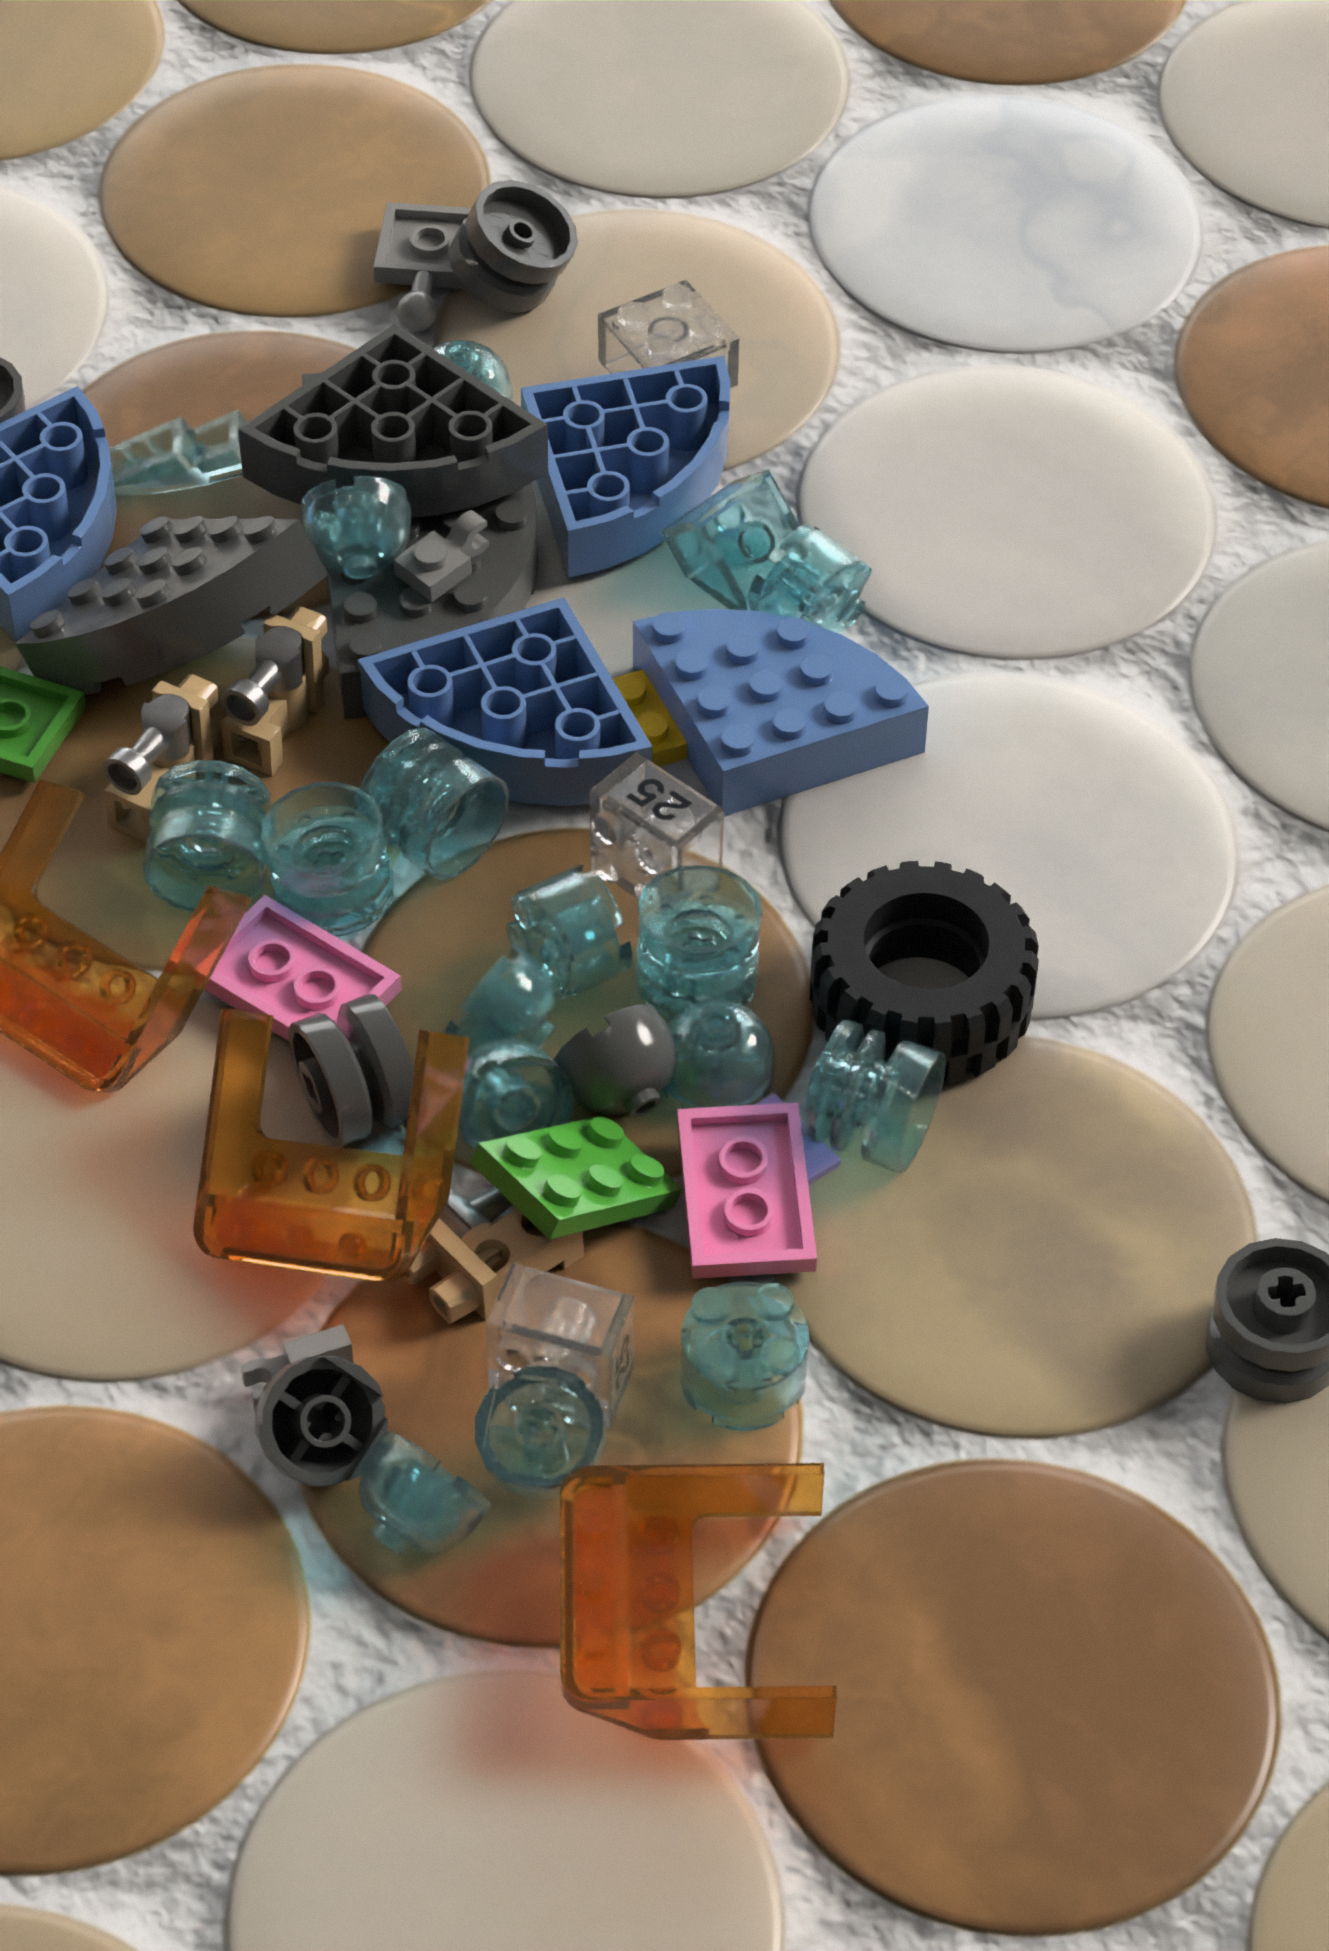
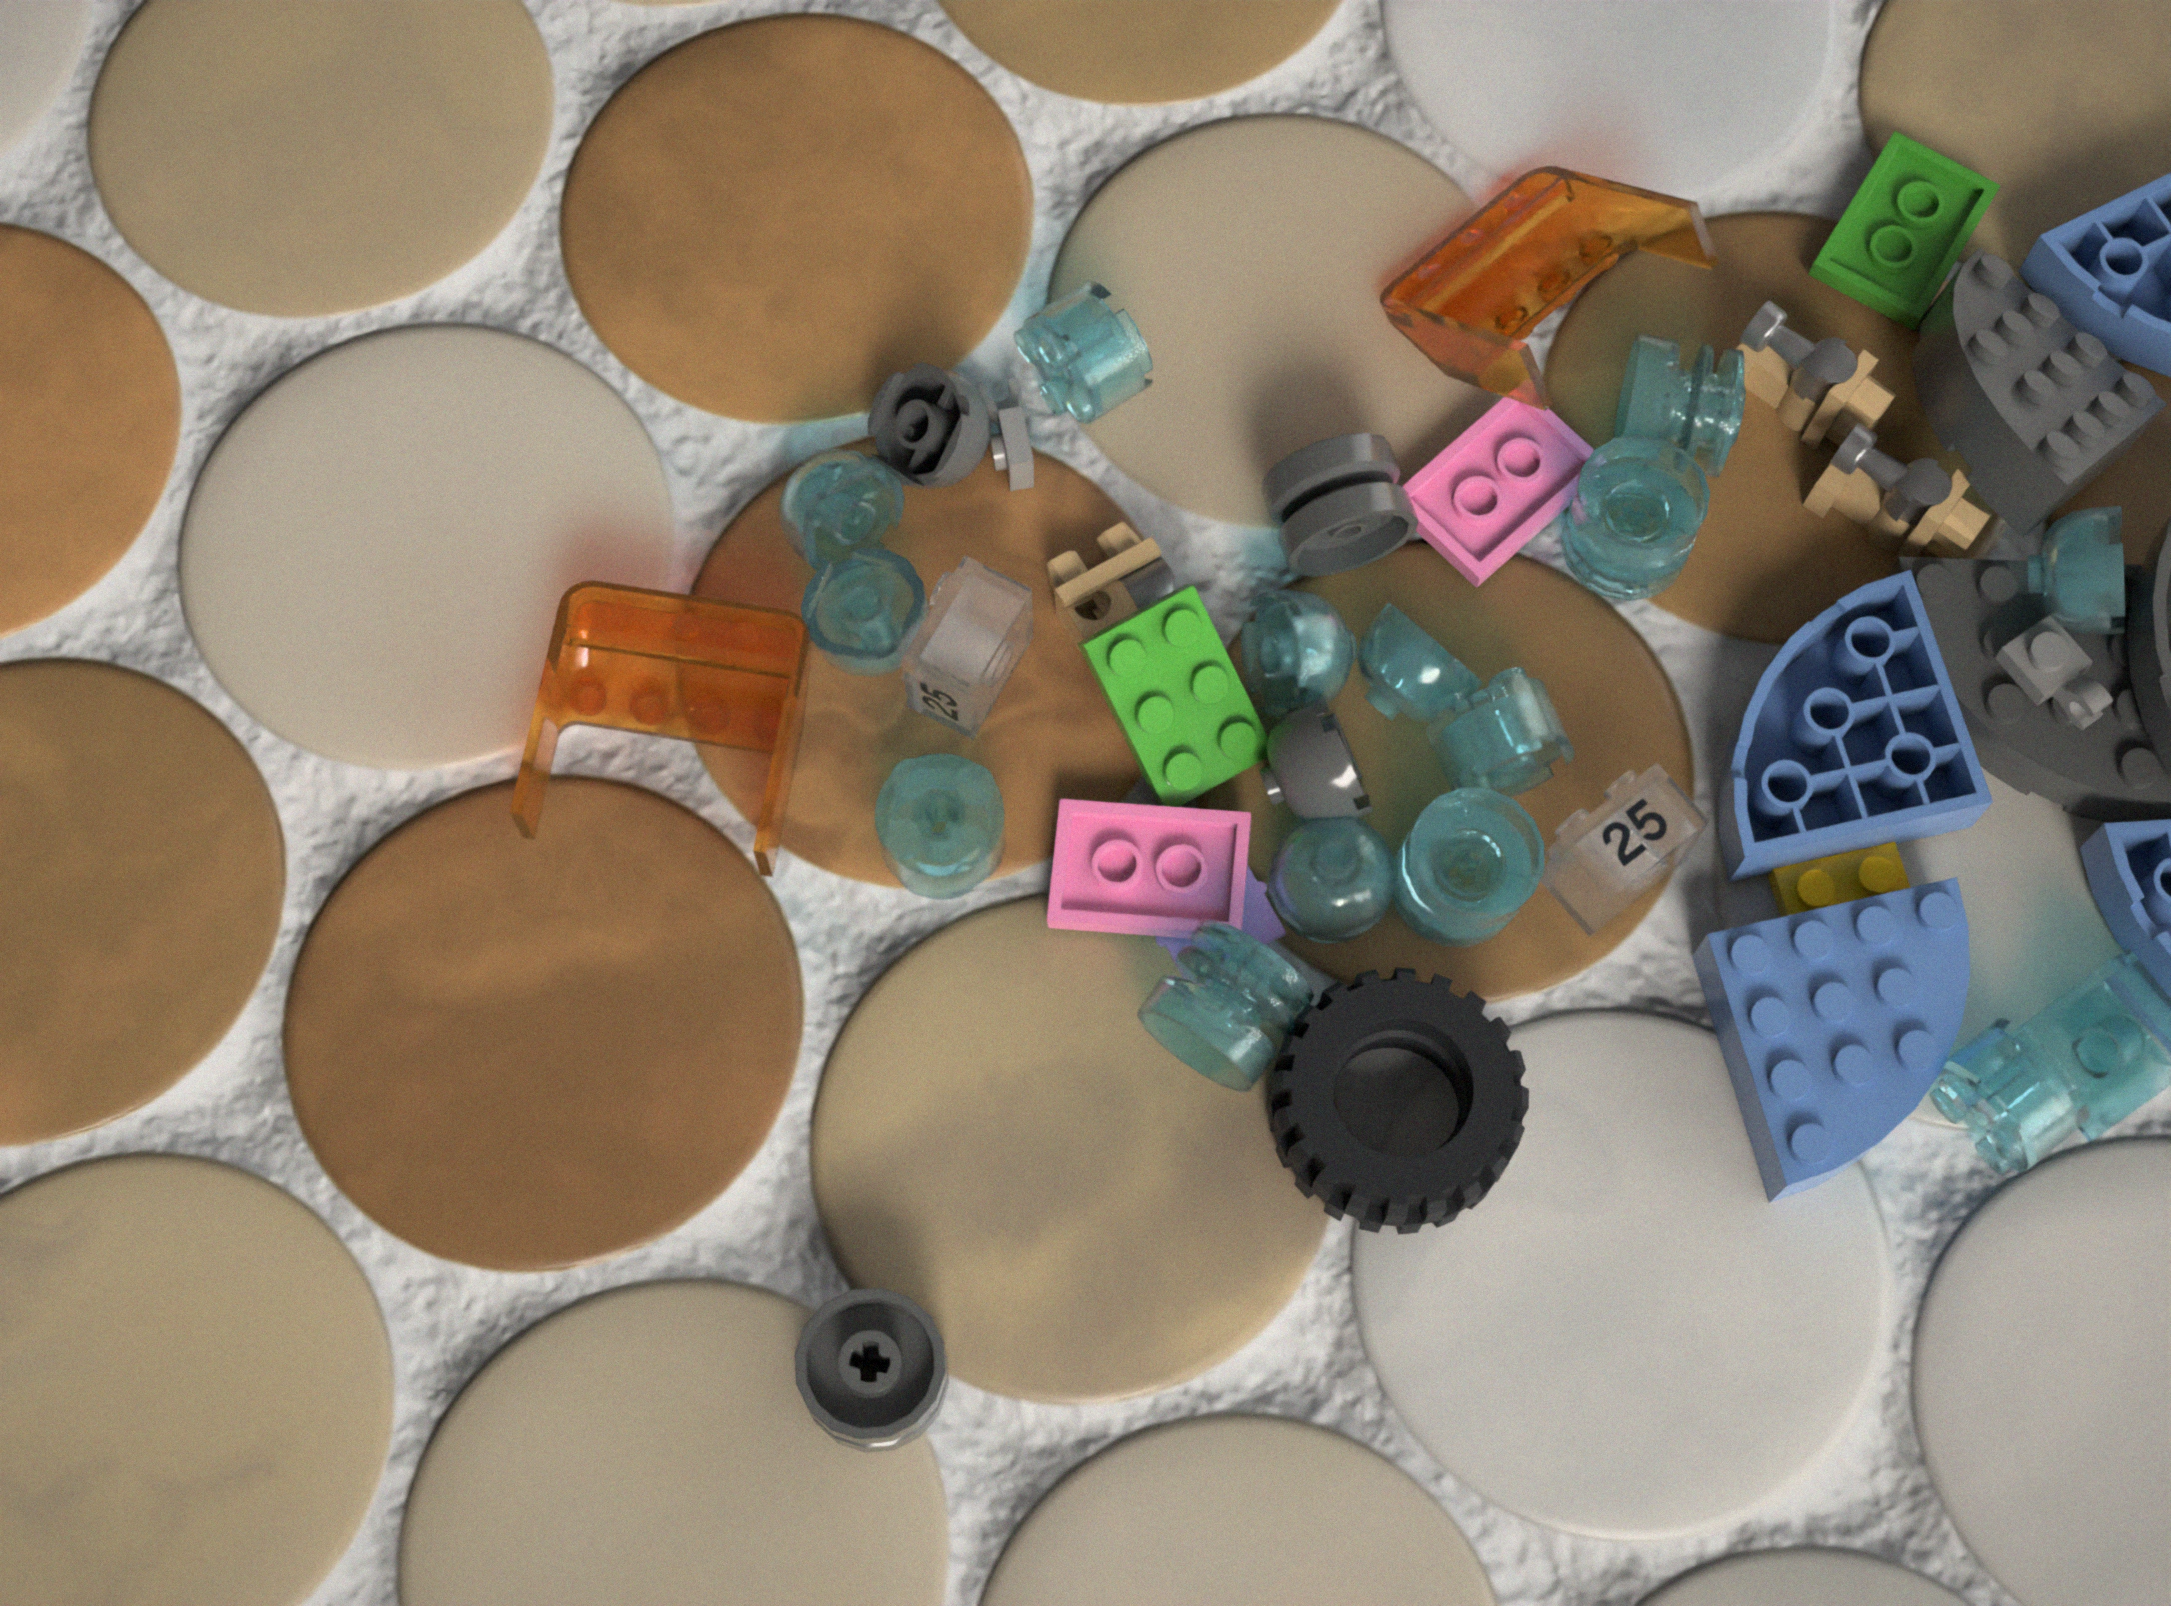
camera: 100 degrees right, 20 degrees up
(214, 1298) = (1085, 354): none -> clear light blue brick
(315, 1202) = (1177, 459): clear orange windscreen -> none
(436, 802) = (1700, 627): clear light blue wheel -> none

